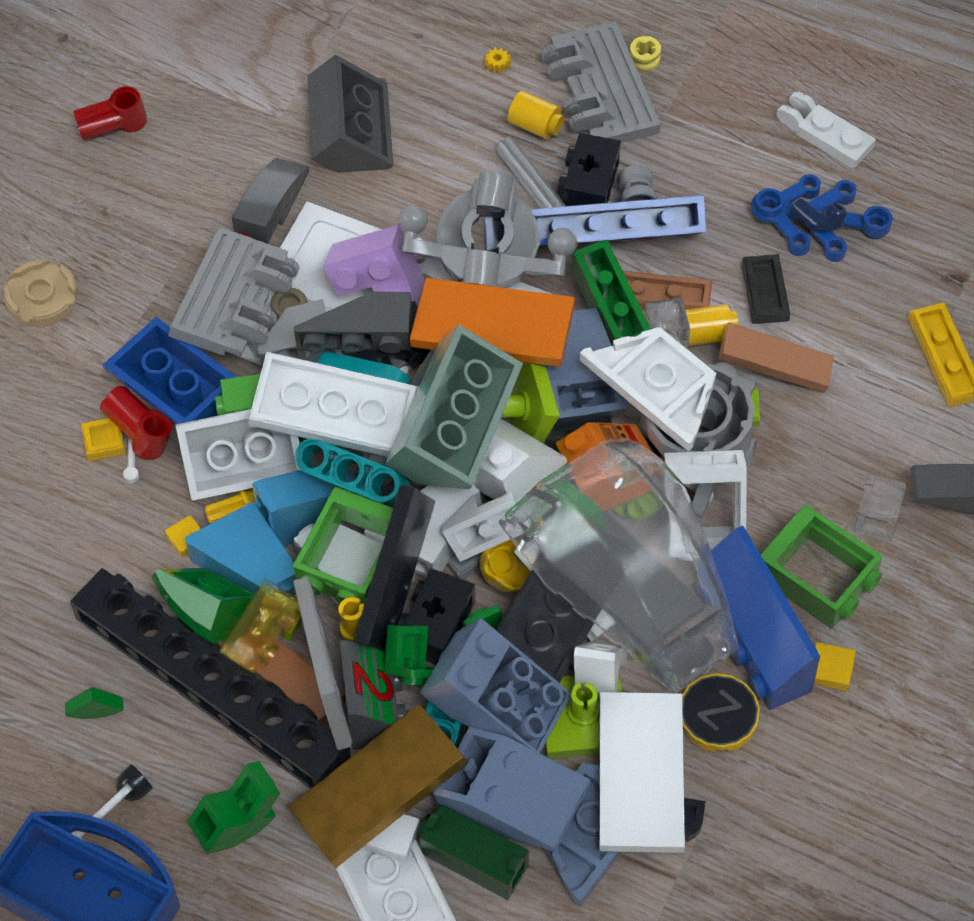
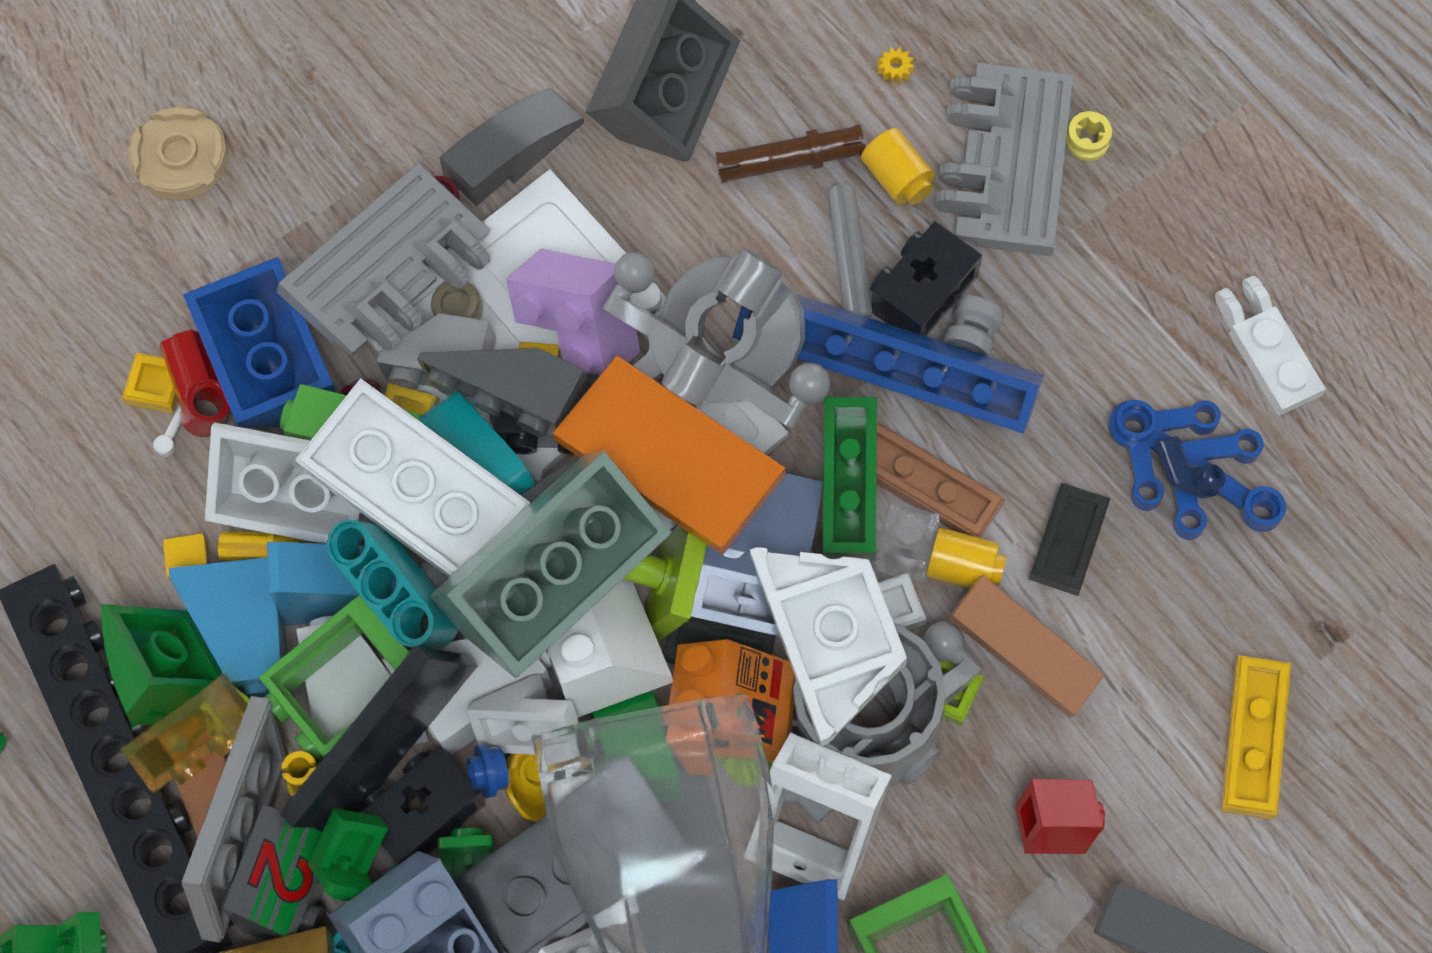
camera: 25 degrees right, 10 degrees up
(470, 128) = (791, 153): none -> reddish brown pin
(474, 566) = (488, 770): none -> blue plate
(853, 444) = (1059, 816): none -> red brick

